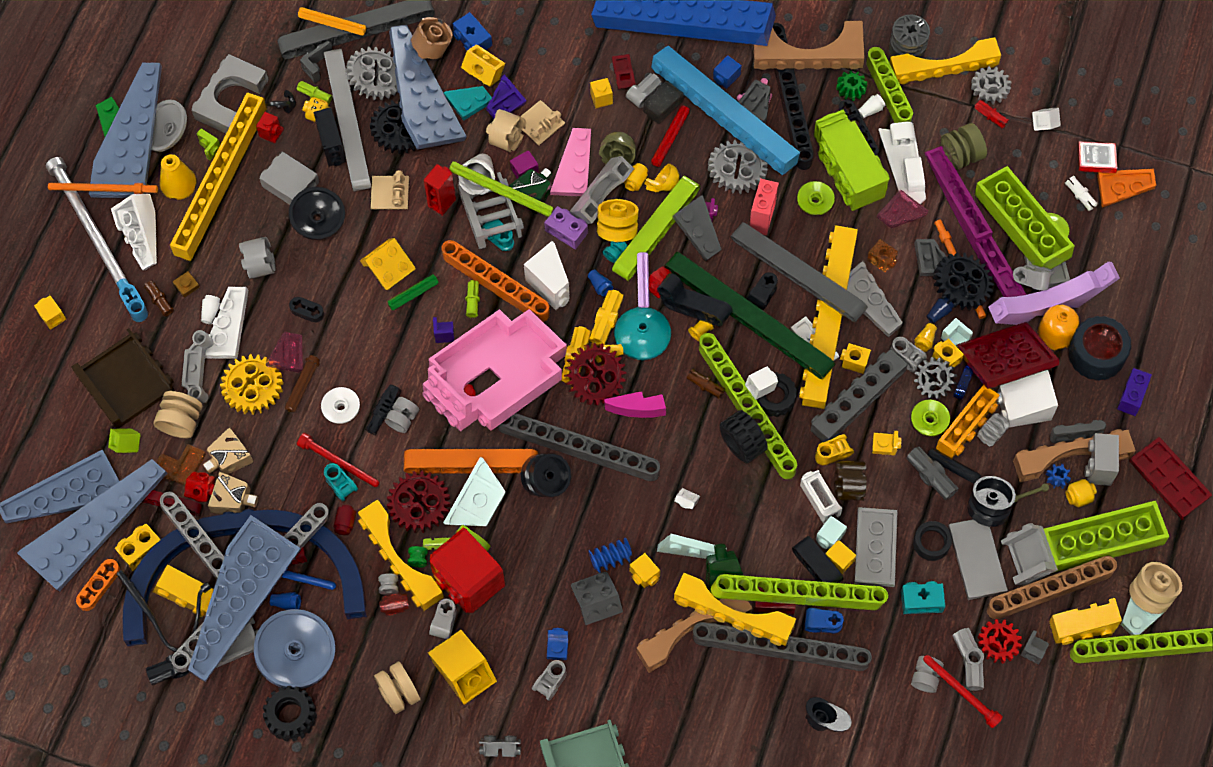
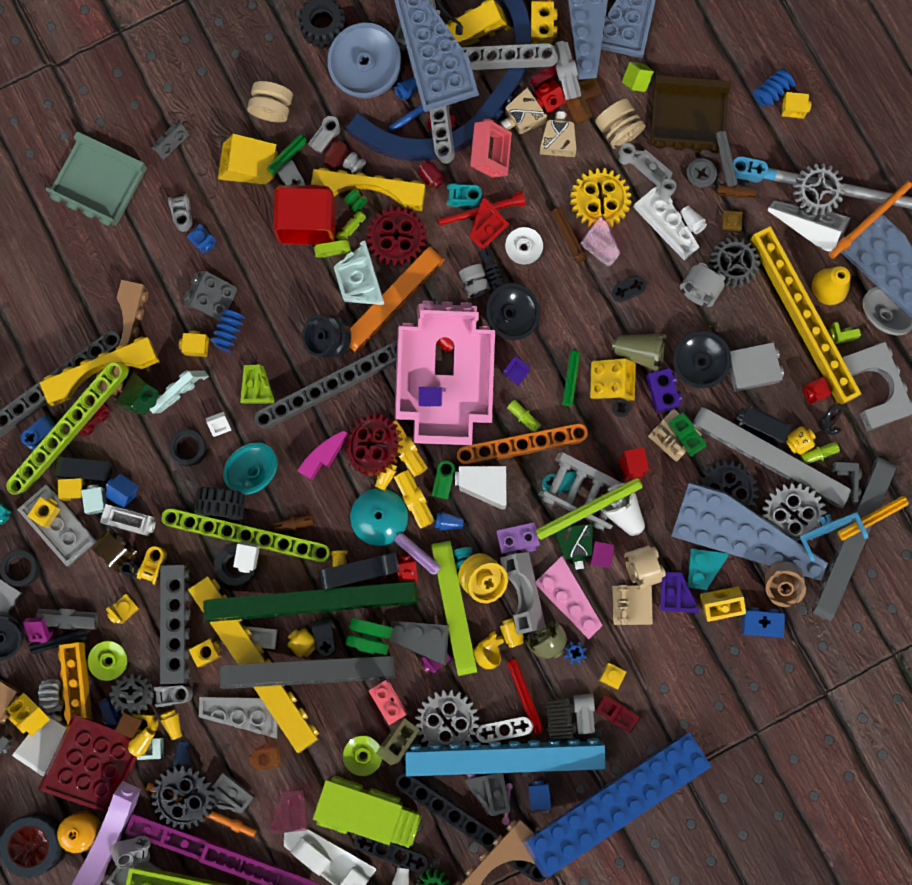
camera: 135 degrees right, 15 degrees up
(48, 337) = (773, 88): none -> blue piece
(105, 244) = (818, 196): none -> light grey gear
(140, 318) = (726, 158): none -> dark grey axle
(159, 329) = (699, 165): none -> dark grey gear
(168, 482) = (567, 71): none -> light grey piece
(210, 249) = (740, 267): none -> dark grey gear
(283, 488) = (501, 148): none -> coral window
(346, 258) = (641, 349): none -> olive cone
(348, 444) = (487, 224): none -> red wing
(365, 39) = (828, 526): none -> dark azure piece
(367, 224) = (658, 391): none -> dark purple brick
(382, 182) = (686, 434): none -> green slope
(386, 627) = (323, 135): none -> light grey piece
(401, 366) = (522, 307): none -> black dish
(407, 245) = (615, 407): none -> black bush
(428, 638) = (286, 154): none -> green axle
(520, 360) = (431, 396): none -> dark purple panel
(573, 310) = (443, 482): none -> green piece
(606, 124) = (580, 650): none -> blue gear
(632, 496) = (255, 386): none -> lime wing
(692, 455) = (250, 468): none -> teal dish
(705, 120) = (489, 727): none -> white beam
(726, 490) = (173, 447): none -> black tyre
(732, 258) = (369, 636): none -> green wheel
(782, 302) = (302, 642): none -> yellow head
(789, 178) = (397, 741): none -> olive brick
(804, 519) = (121, 490): none -> blue brick
(853, 453) = (129, 569): none -> black pin
(879, 549) = (36, 512): none -> yellow brick
(956, 355) = (128, 725): none -> reddish brown tile
(959, 337) = (140, 744): none -> yellow cone
(960, 480) = (37, 630): none -> magenta bracket
(1020, 429) = (26, 715): none -> yellow brick

